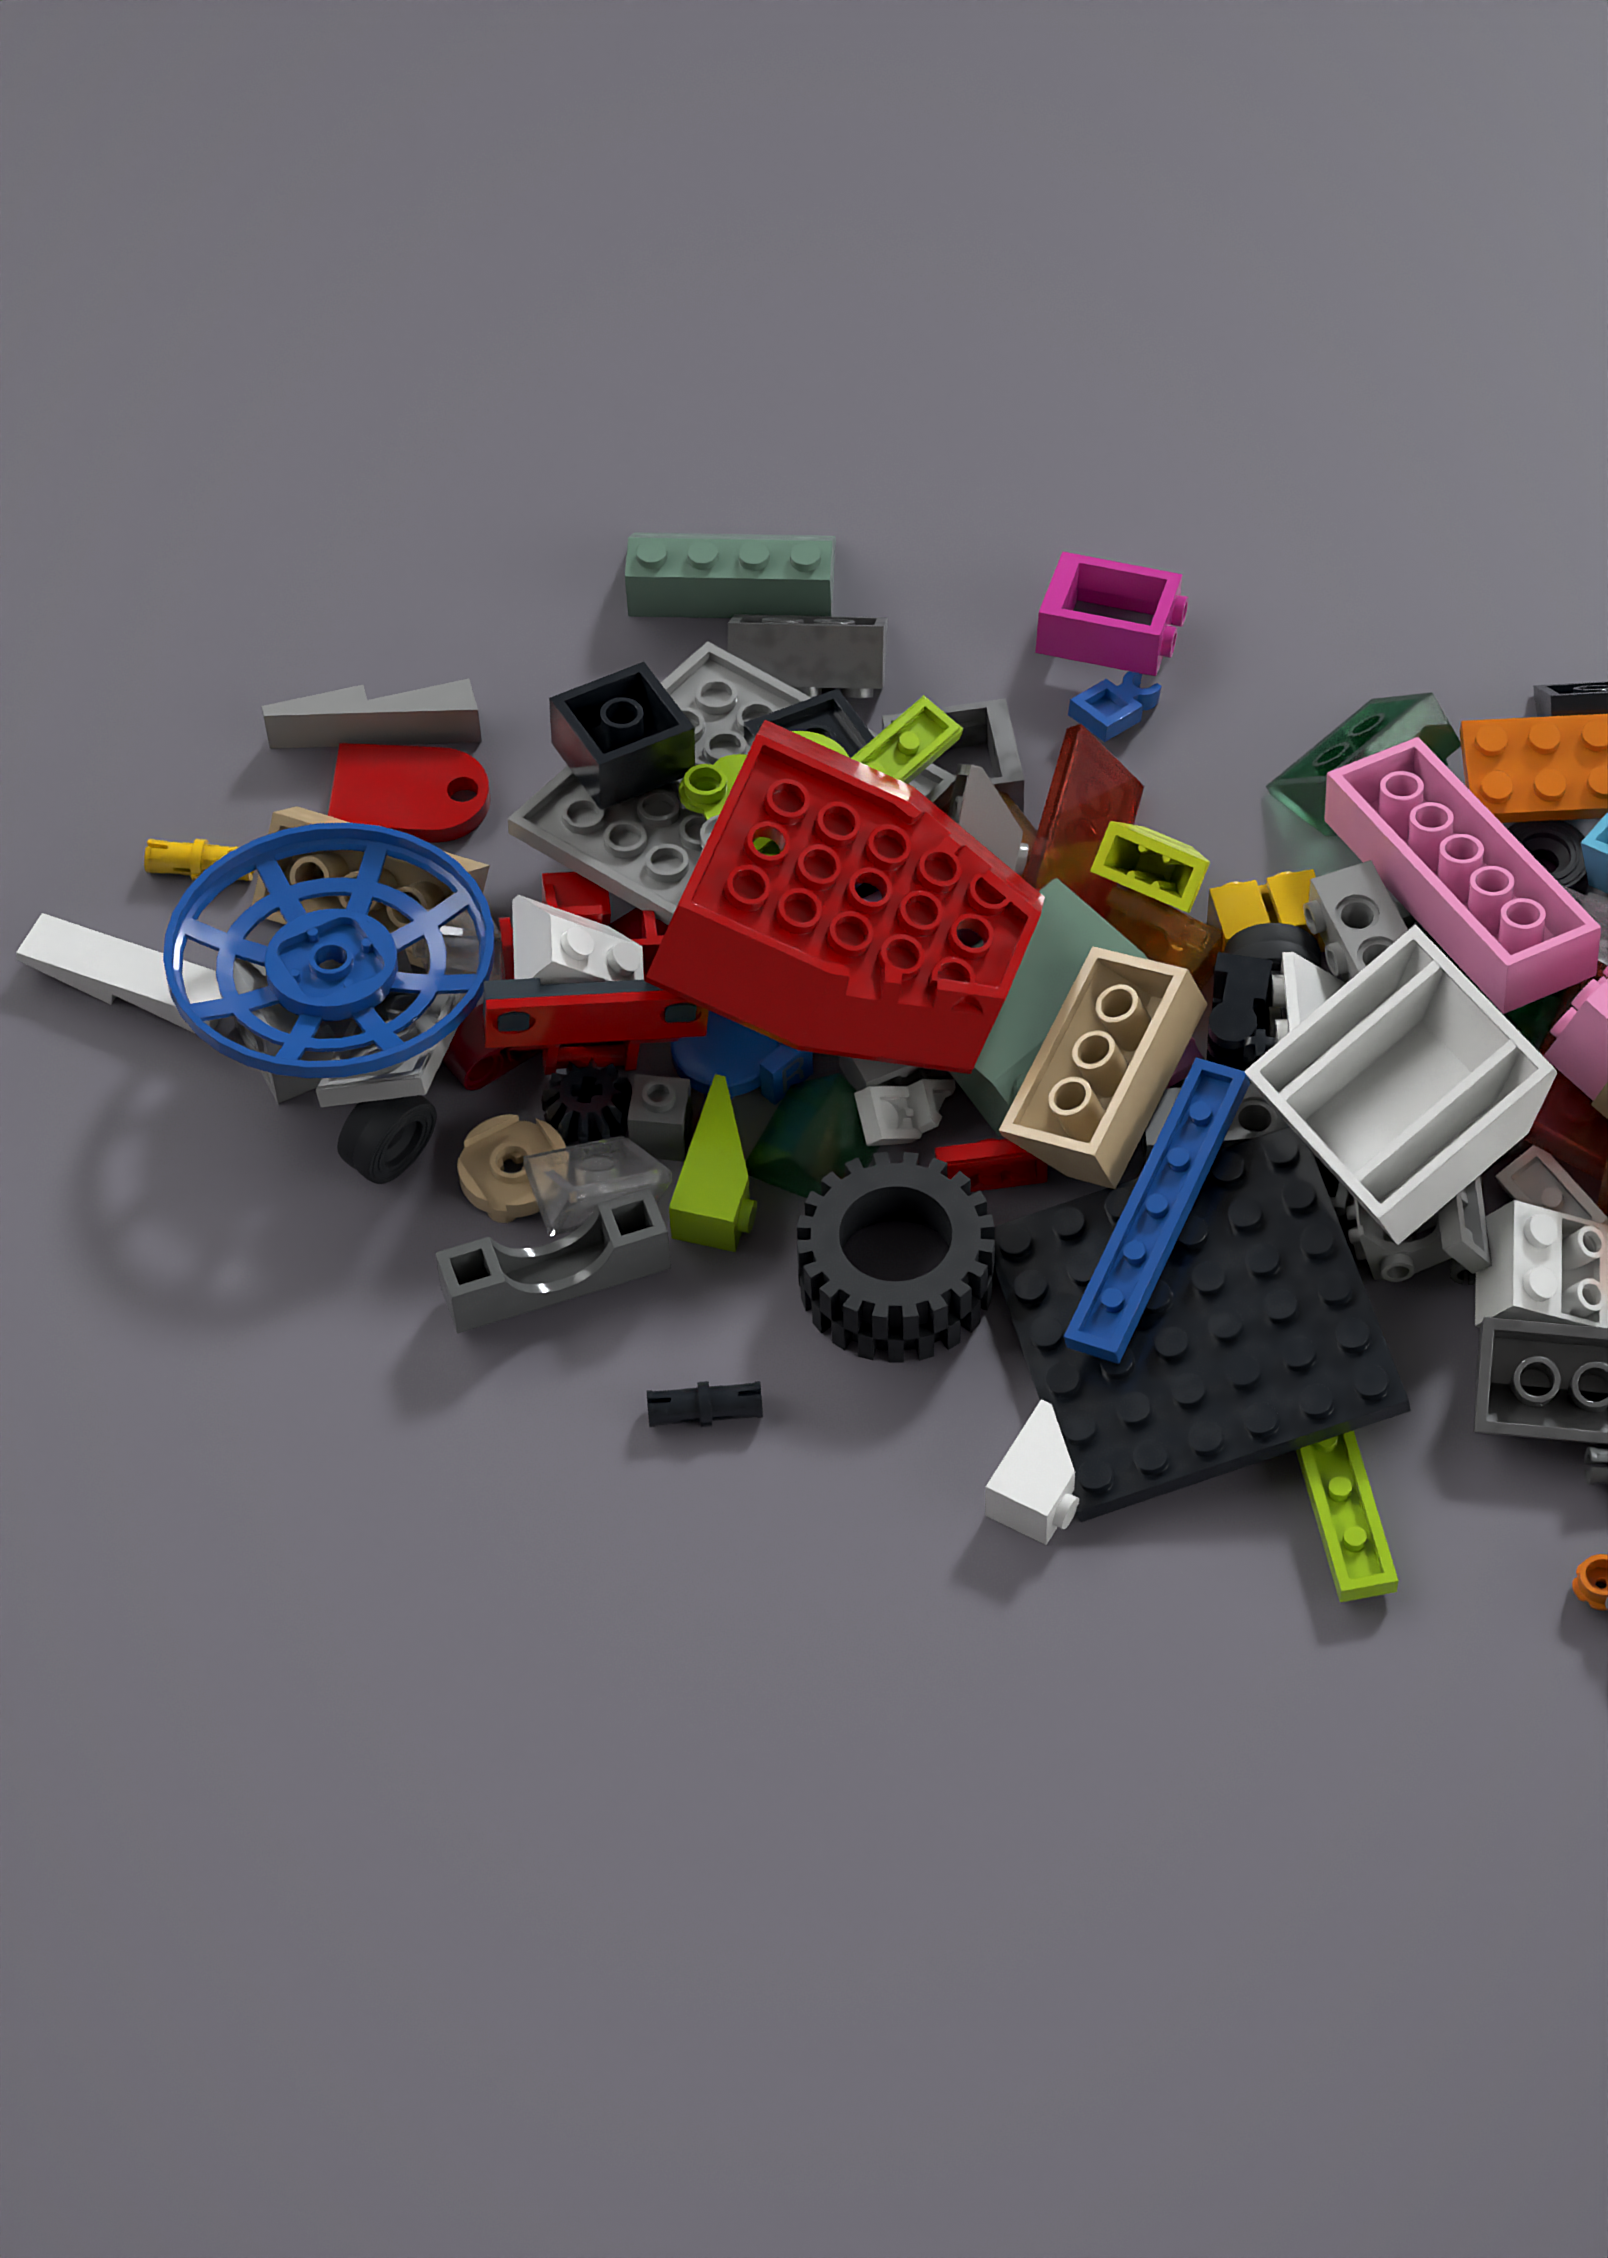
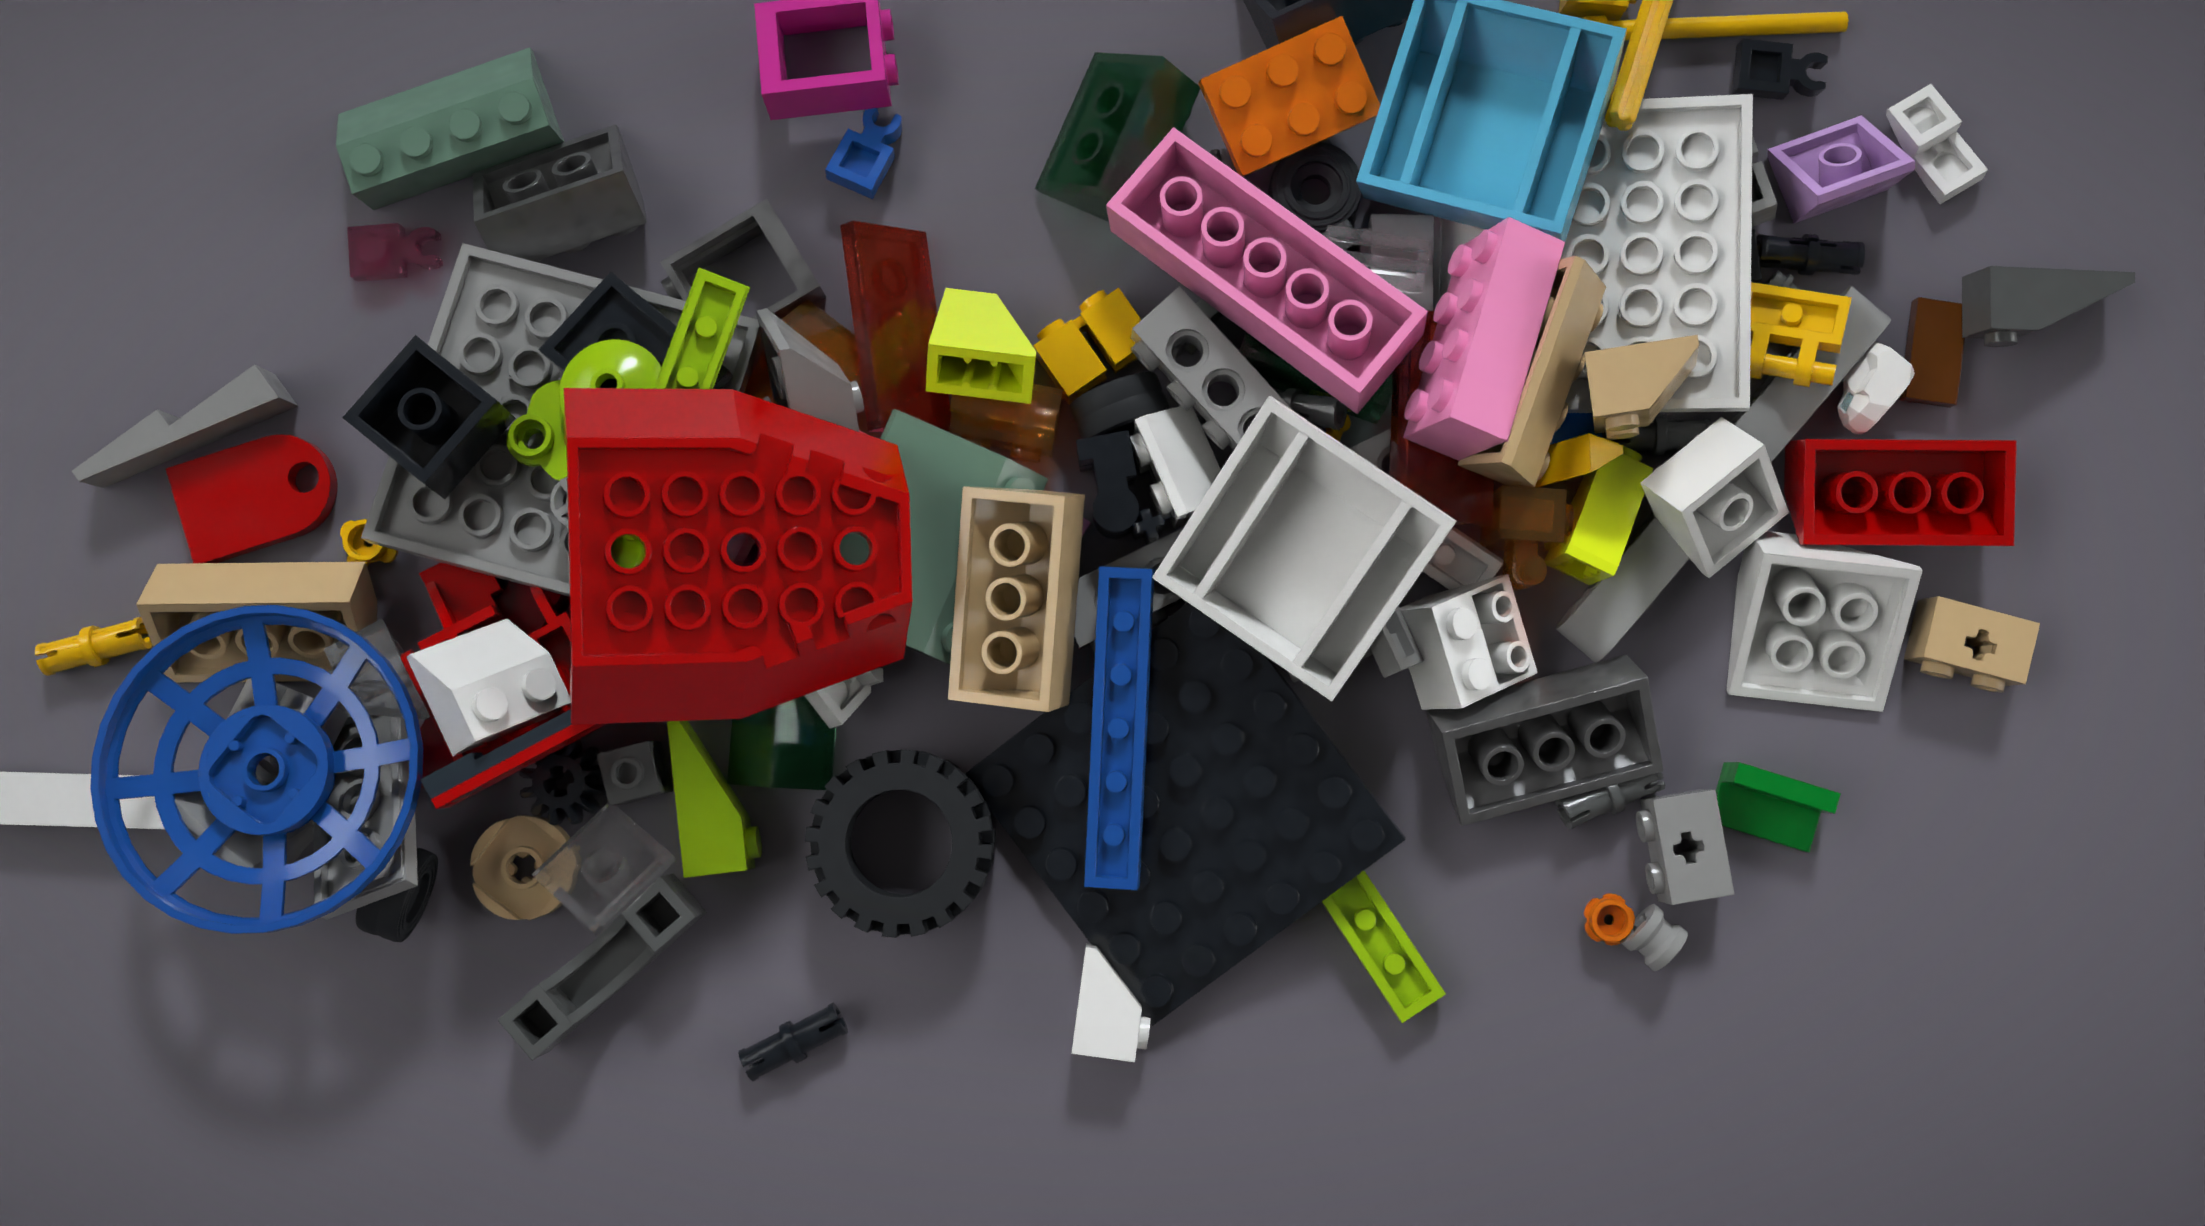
camera: 25 degrees left, 30 degrees up
(499, 848) = (356, 548): none -> yellow plate
(625, 643) = (384, 251): none -> clear pink plate
(993, 1164) = (932, 714): red plate -> none

